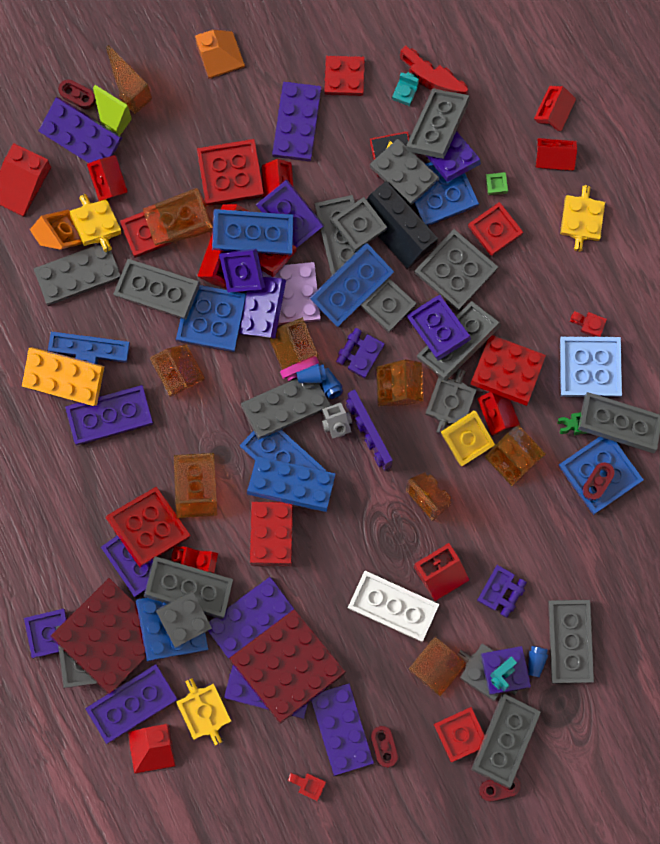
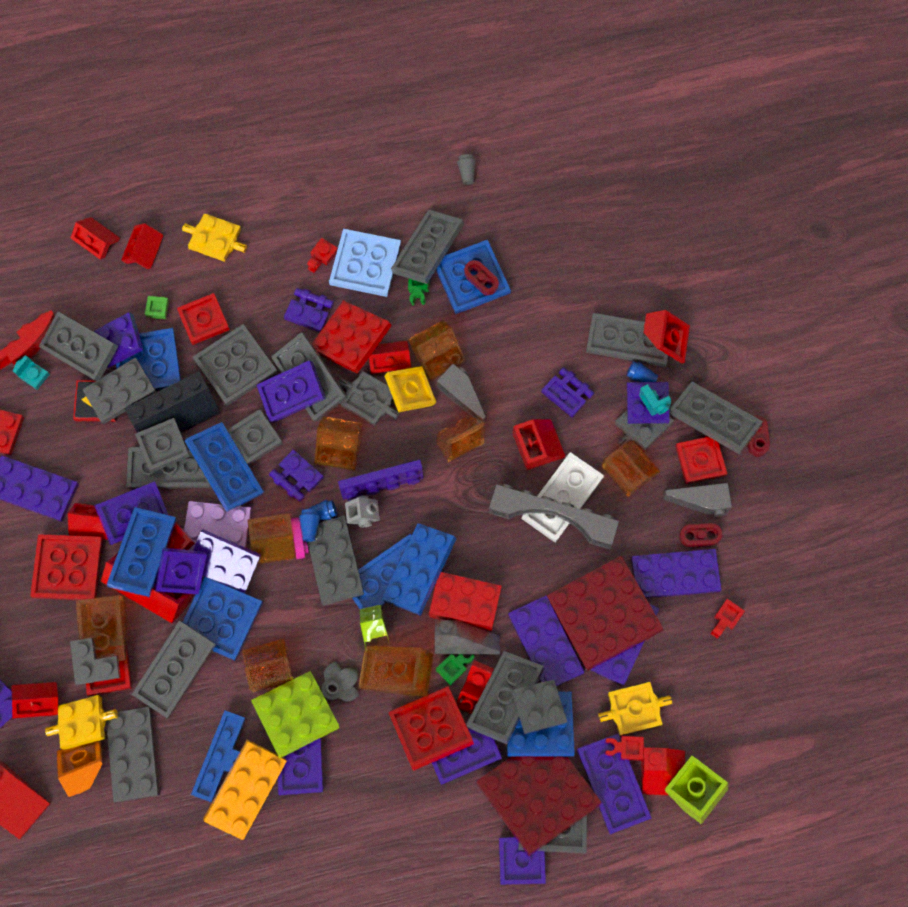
camera: 80 degrees left, 5 degrees down
(136, 403) = (295, 714): none -> lime plate
(139, 780) = (697, 789): none -> lime slope
(142, 213) = (88, 668): none -> dark grey plate
(164, 711) = (630, 748): none -> red plate
(177, 439) = (342, 680): none -> dark grey plate
(208, 536) = (453, 667): none -> green plate
(232, 451) = (372, 623): none -> lime piece
(235, 536) = (462, 638): none -> flat silver slope
(364, 643) = (512, 503): none -> flat silver arch
(421, 748) = (704, 499): none -> flat silver slope
(479, 486) = (458, 388): none -> flat silver slope
(522, 325) = (306, 315): none -> dark purple plate
(579, 677) = (667, 333): none -> red slope

